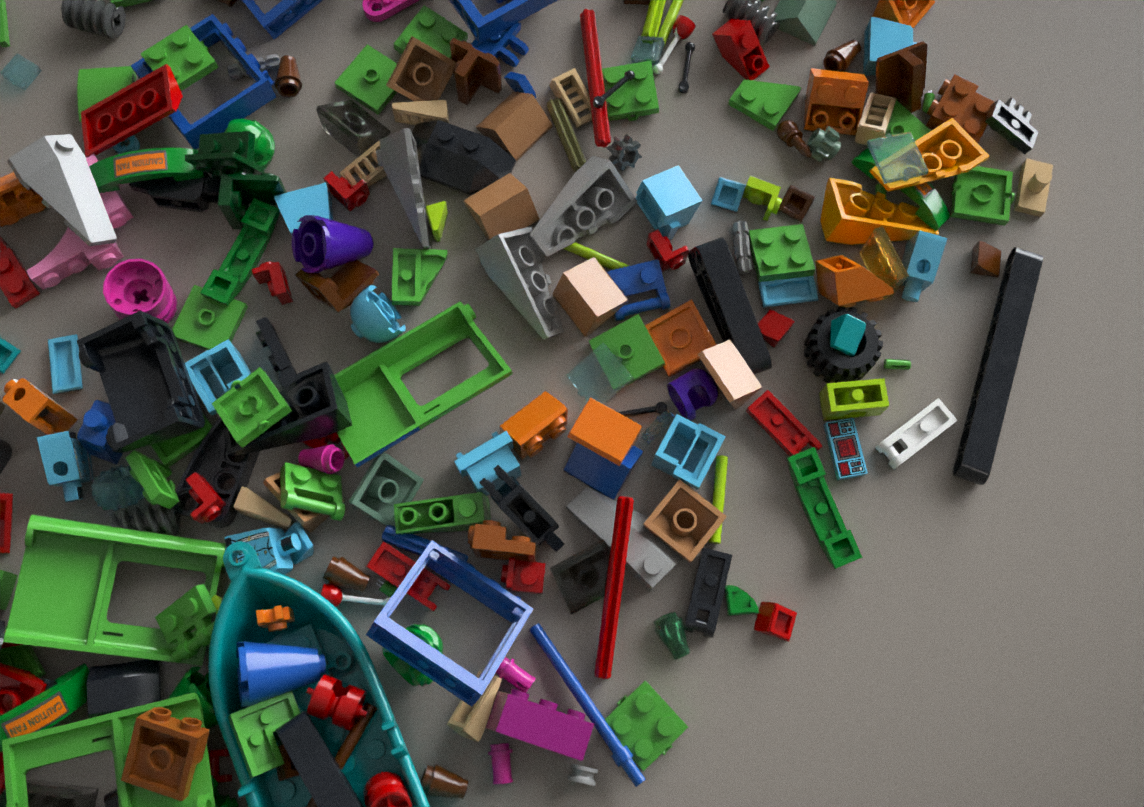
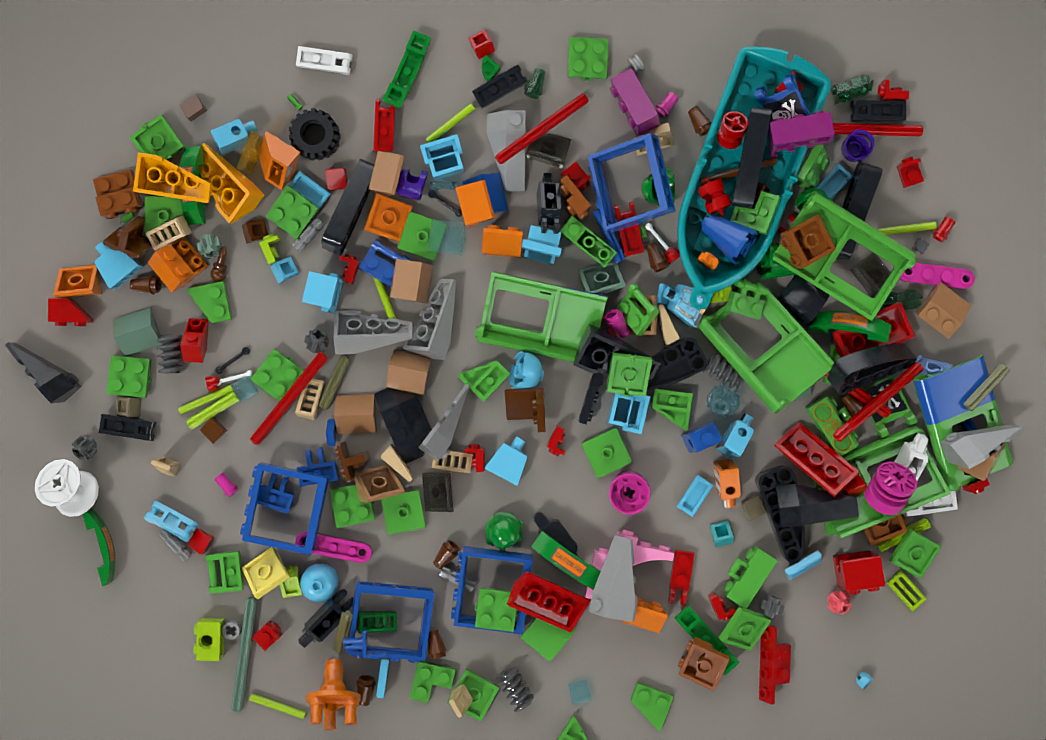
camera: 130 degrees left, 15 degrees up
(142, 381) = (669, 434): black windscreen -> none
(153, 479) = (705, 378): bright green wing -> none
(204, 492) = (687, 354): red bracket -> none
(225, 154) = (521, 527): dark green bracket -> none
(240, 189) = (538, 503): dark green bracket -> none
(244, 254) = (559, 472): green slope -> none
(328, 243) = (515, 429): dark purple cone -> none
(437, 217) = (447, 397): lime slope -> none
(515, 675) = (623, 133): dark pink pin -> none
(598, 101) = (304, 378): black hinge -> none
(621, 755) = (611, 54): blue bar -> none
(684, 521) = (479, 126): medium nougat slope -> none
(845, 449) = (365, 87): tile -> none
(846, 333) = (311, 134): teal slope -> none
(854, 399) = (338, 103): lime brick -> none
(897, 157) = (187, 196): clear light blue piece -> none
(997, 367) = (246, 52): black beam -> none
(1012, 124) = (99, 161): black hinge -> none
(1033, 187) = (125, 120): tan tile -> none

